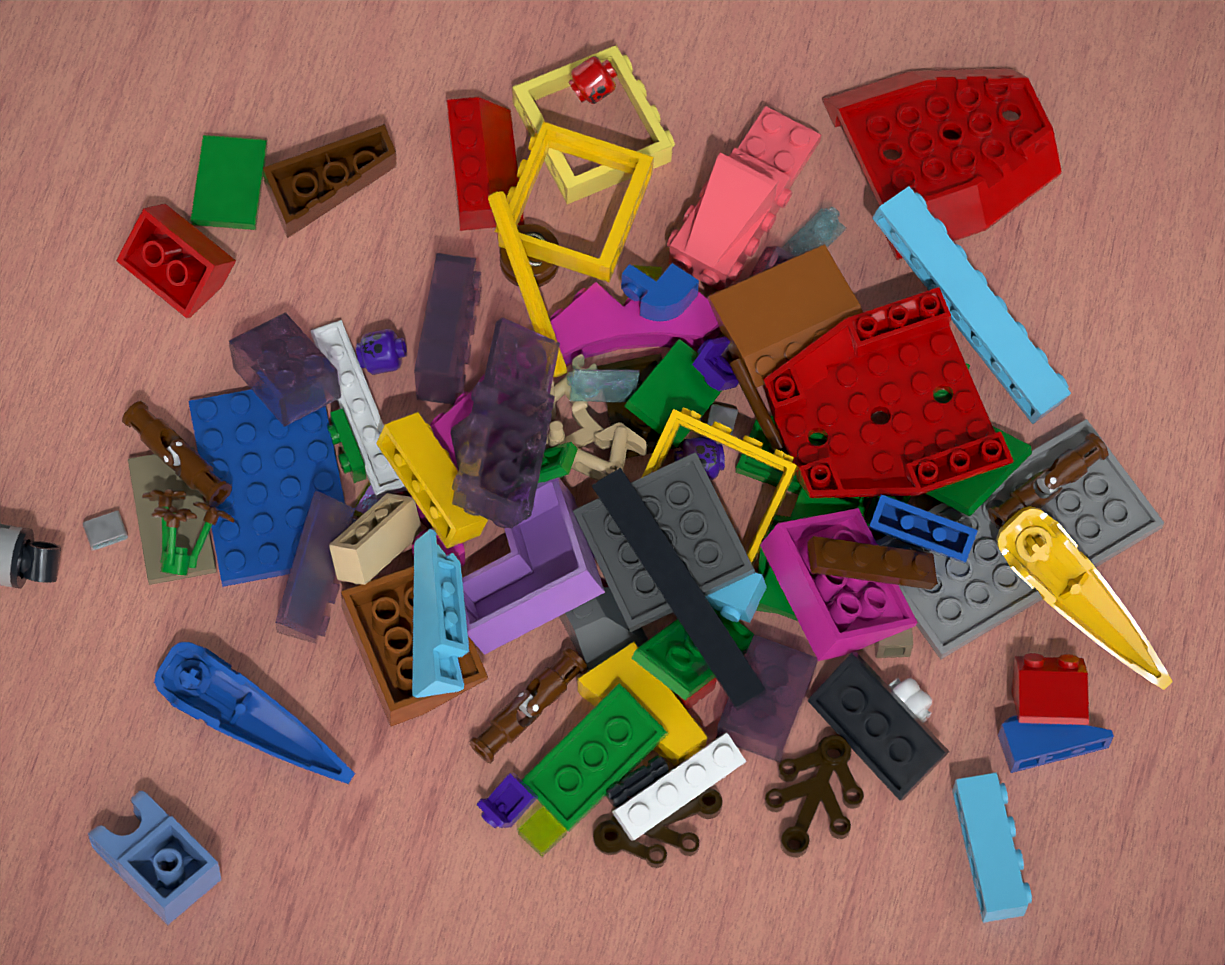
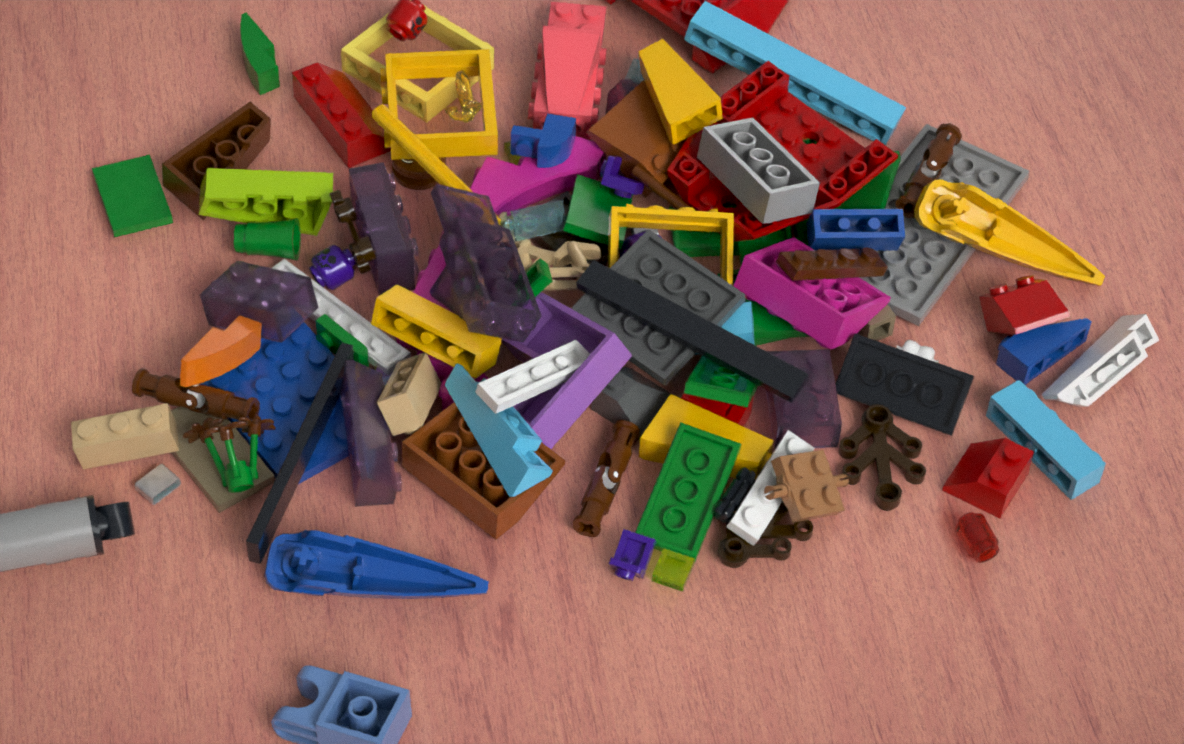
camera: 25 degrees left, 15 degrees down
(92, 470) = (125, 436): none -> tan brick
(175, 259) = (114, 262): red slope -> none
(218, 416) = (221, 351): none -> orange slope
(243, 560) = (298, 457): none -> black tile
(335, 293) = (269, 238): none -> green plant
(346, 249) = (267, 196): none -> lime wedge
(405, 356) = (361, 247): none -> dark brown plant
(429, 56) = (258, 56): none -> green slope
(492, 579) = (532, 377): none -> white plate
(593, 223) = (469, 106): none -> clear yellow piece
(712, 803) = (807, 486): none -> medium nougat plate
(816, 297) = (678, 92): none -> yellow slope
(847, 424) = (758, 170): none -> light grey brick
(856, 926) = (977, 537): none -> clear red brick
(910, 863) = (990, 474): none -> red slope
(1108, 783) = (1104, 362): none -> white wedge

